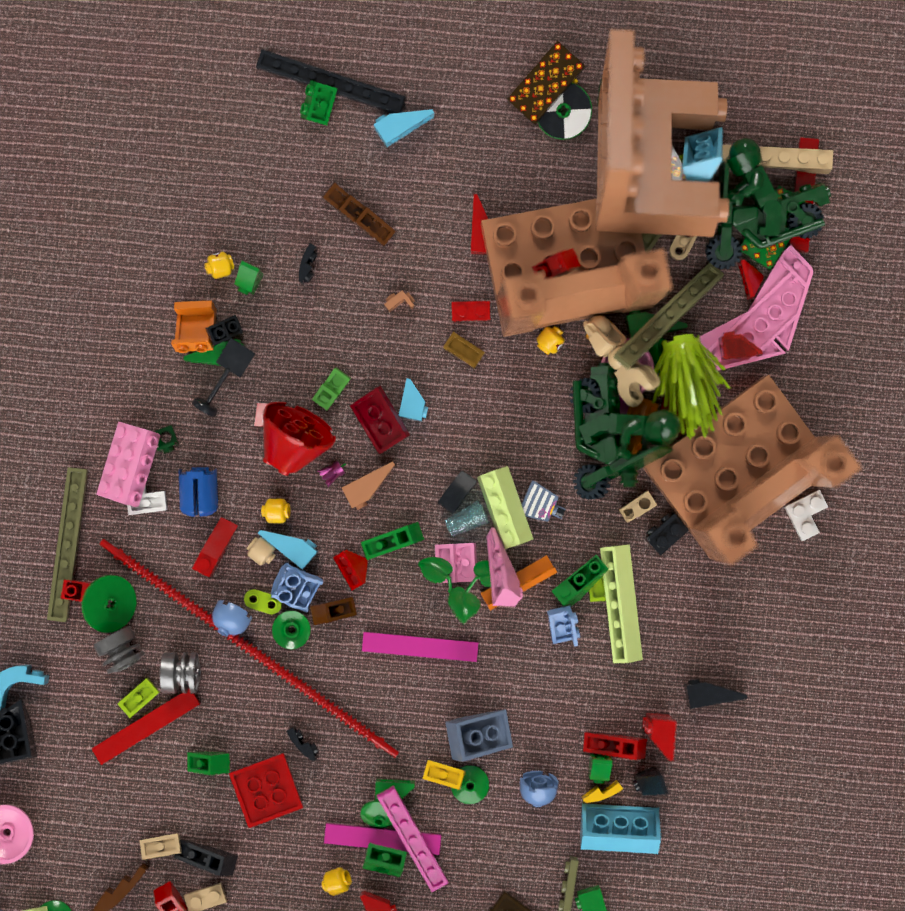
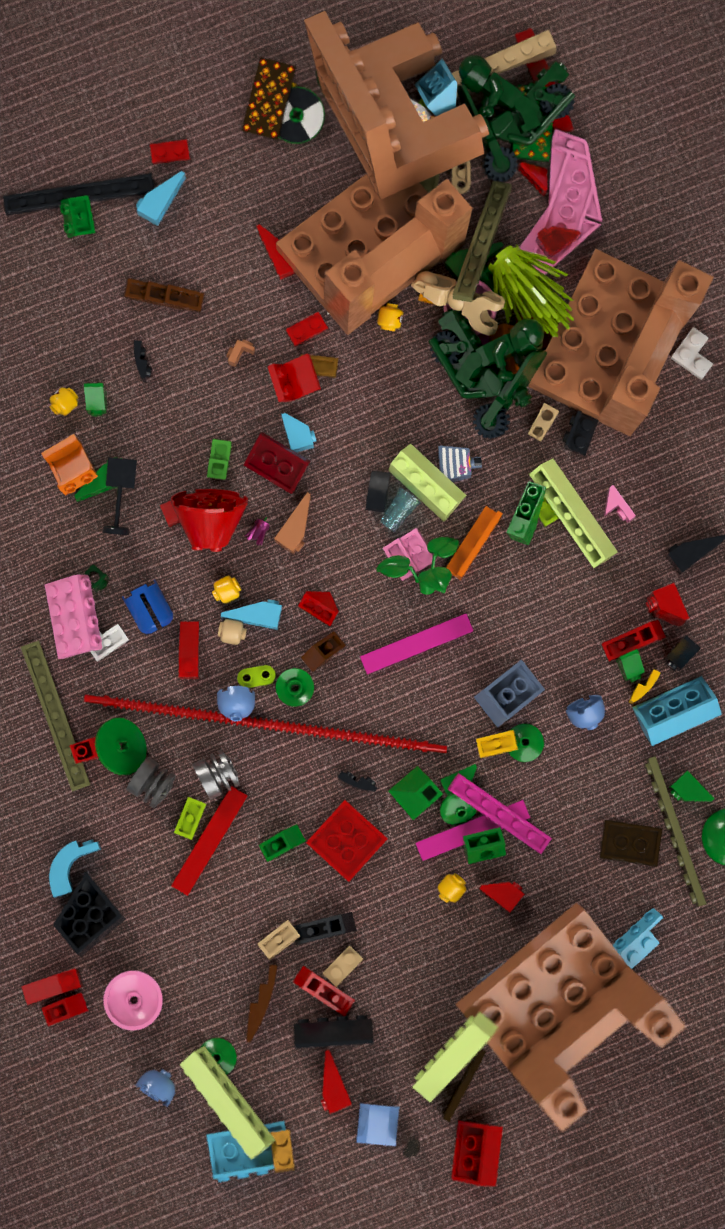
camera: 30 degrees left, 5 degrees down
(224, 330) = (98, 454): black slope -> none
(295, 587) = (278, 647): medium blue slope -> none
(349, 780) = (415, 792): none -> green slope
(392, 540) = (343, 563): green slope -> none
(432, 85) = (169, 151): none -> red plate
(434, 351) = (294, 378): none -> red bracket
(503, 578) = (458, 541): bright pink wedge -> none
(558, 264) = (364, 241): red slope -> none
(562, 625) = (532, 558): medium blue bracket -> none
(664, 610) = (614, 501): none -> bright pink slope

